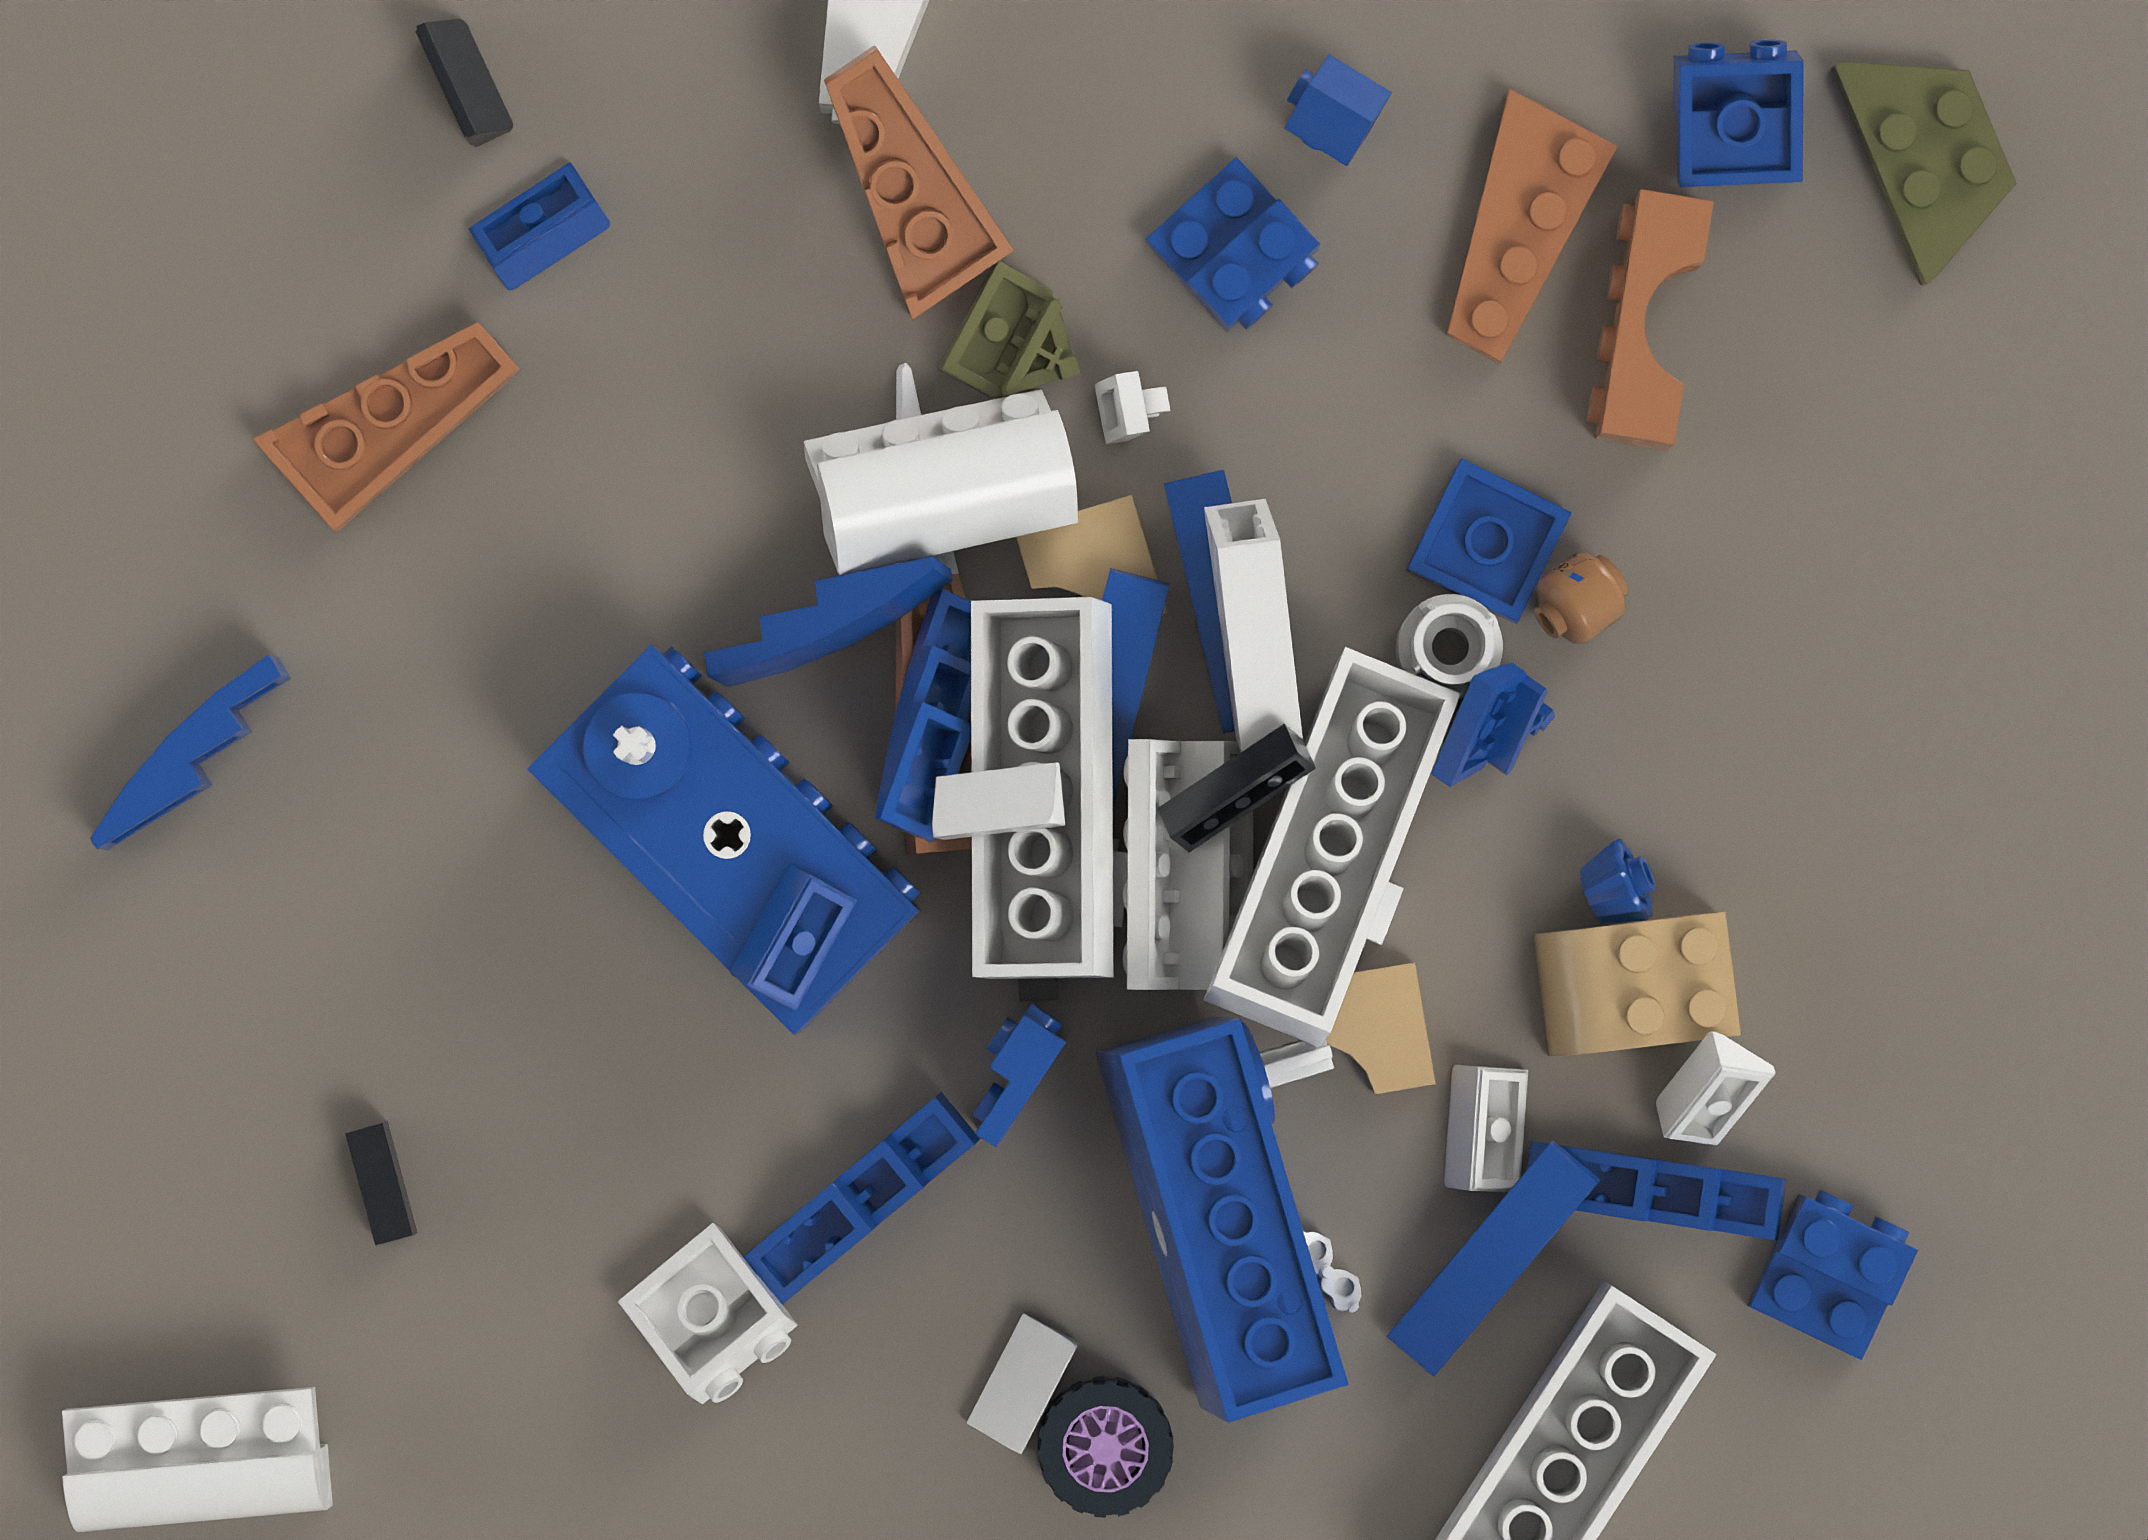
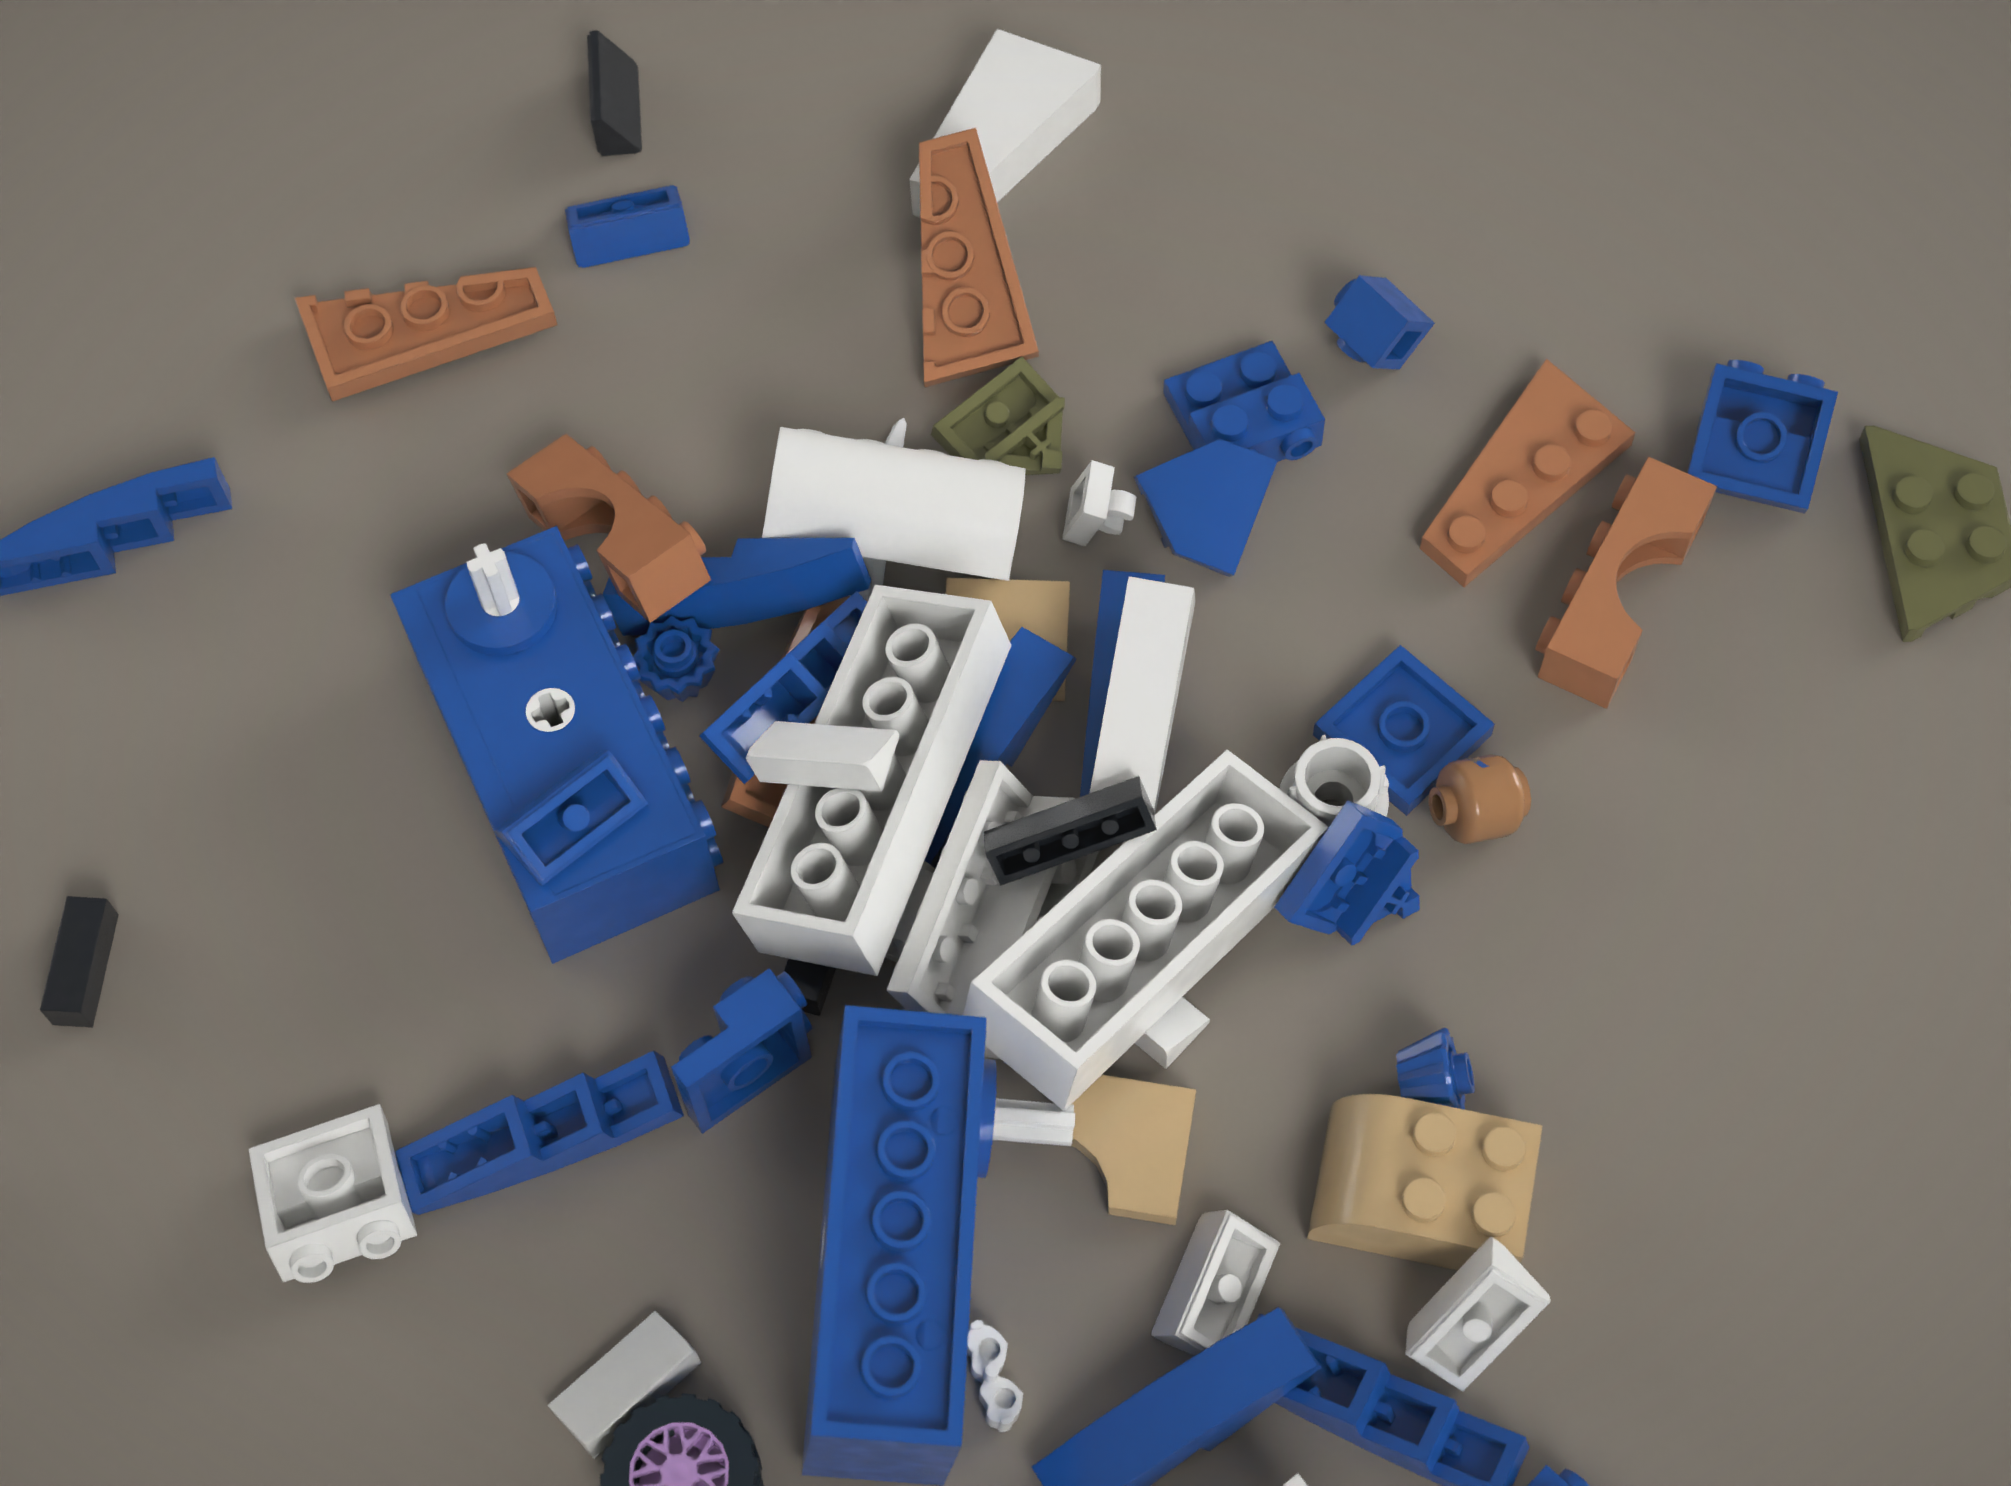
camera: 25 degrees right, 25 degrees down
(740, 638) = (645, 552): none -> nougat arch
(795, 707) = (676, 658): none -> blue piece
(1236, 370) = (1208, 502): none -> blue slope

